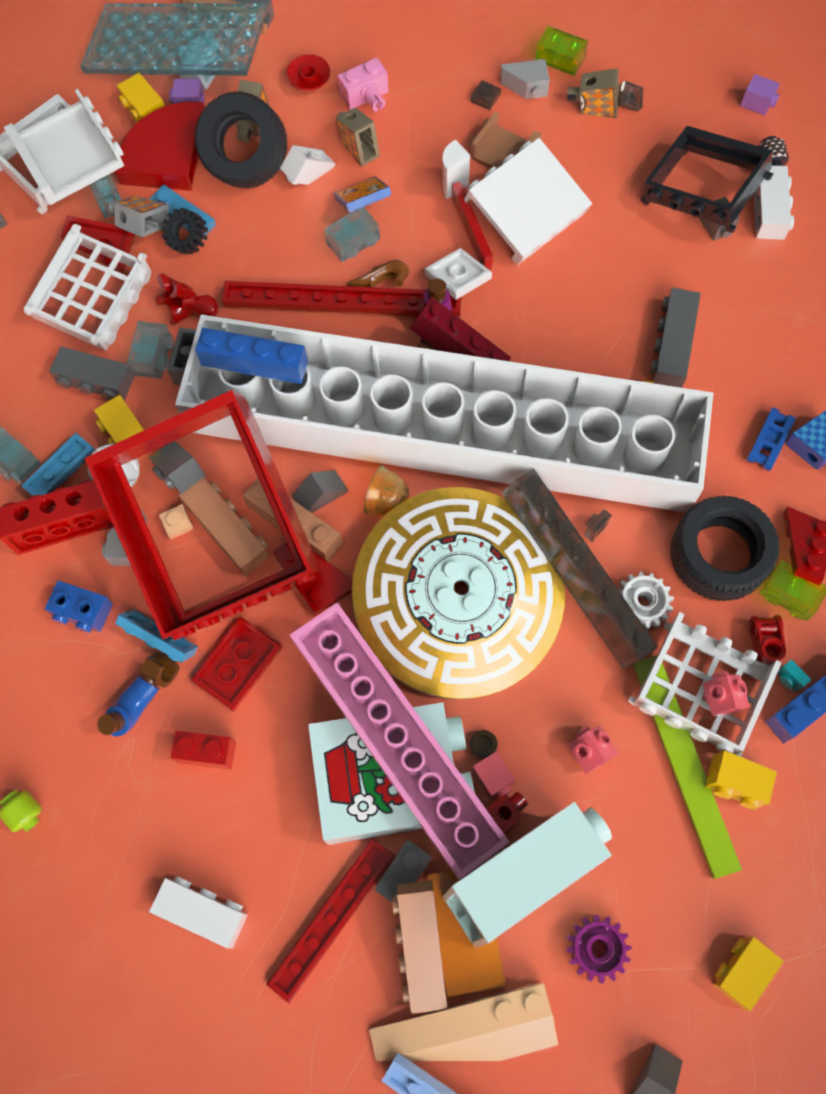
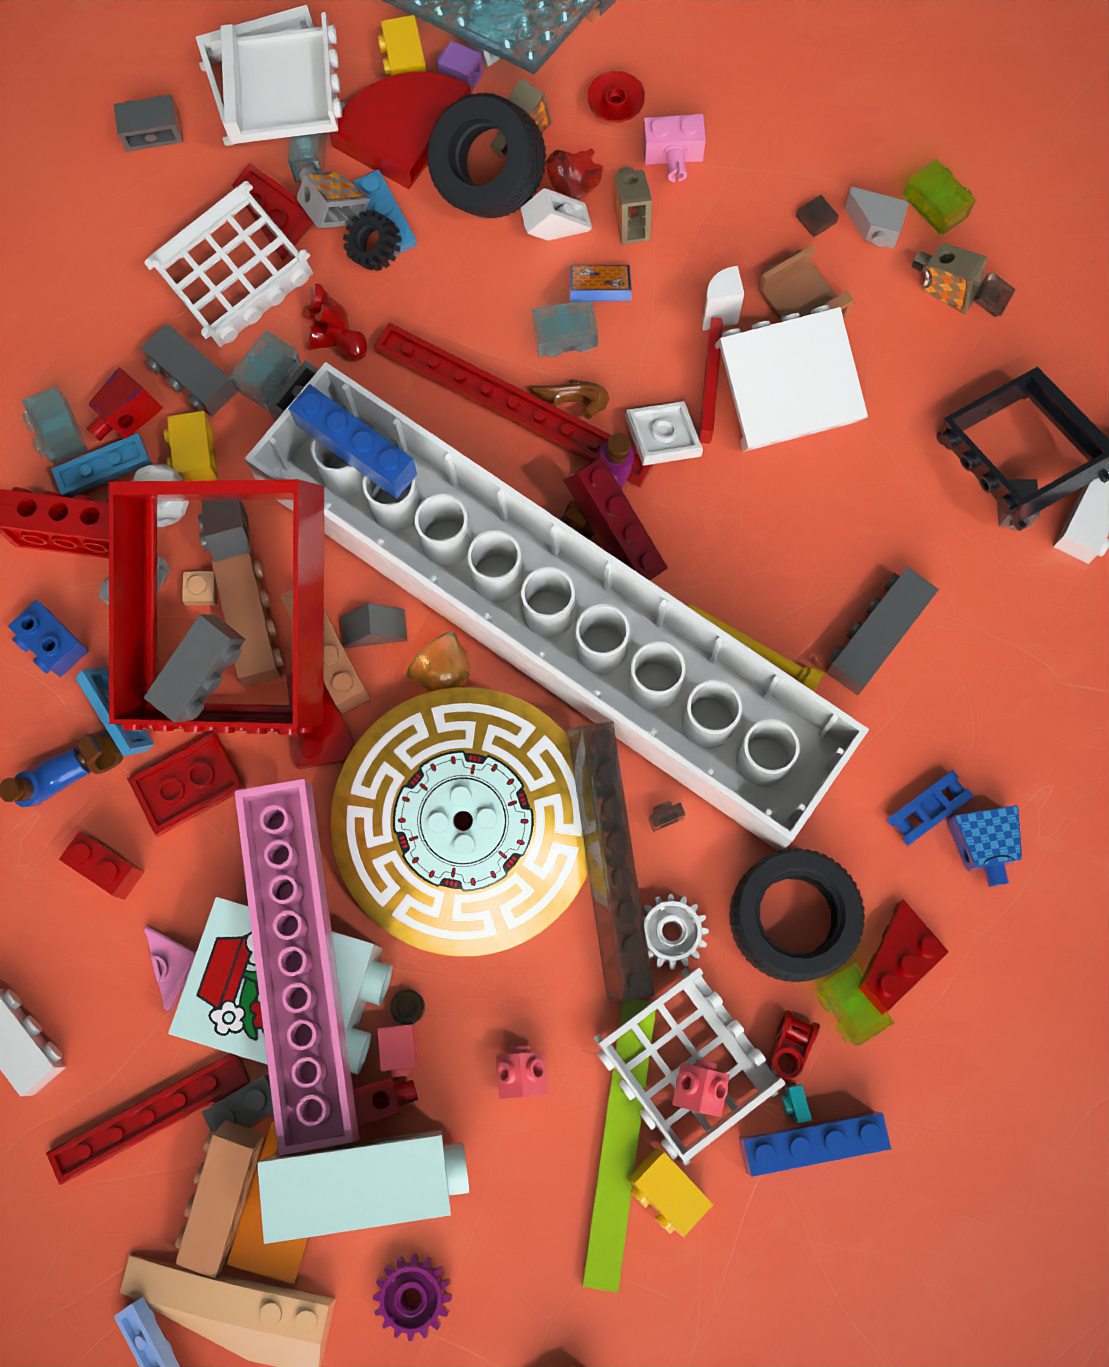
camera: 25 degrees right, 5 degrees up
(55, 418) = (121, 406): none -> red torso
(214, 563) = (195, 668): none -> dark grey brick
(292, 798) = (170, 964): none -> bright pink tile
(306, 129) = (573, 173): none -> clear red hair

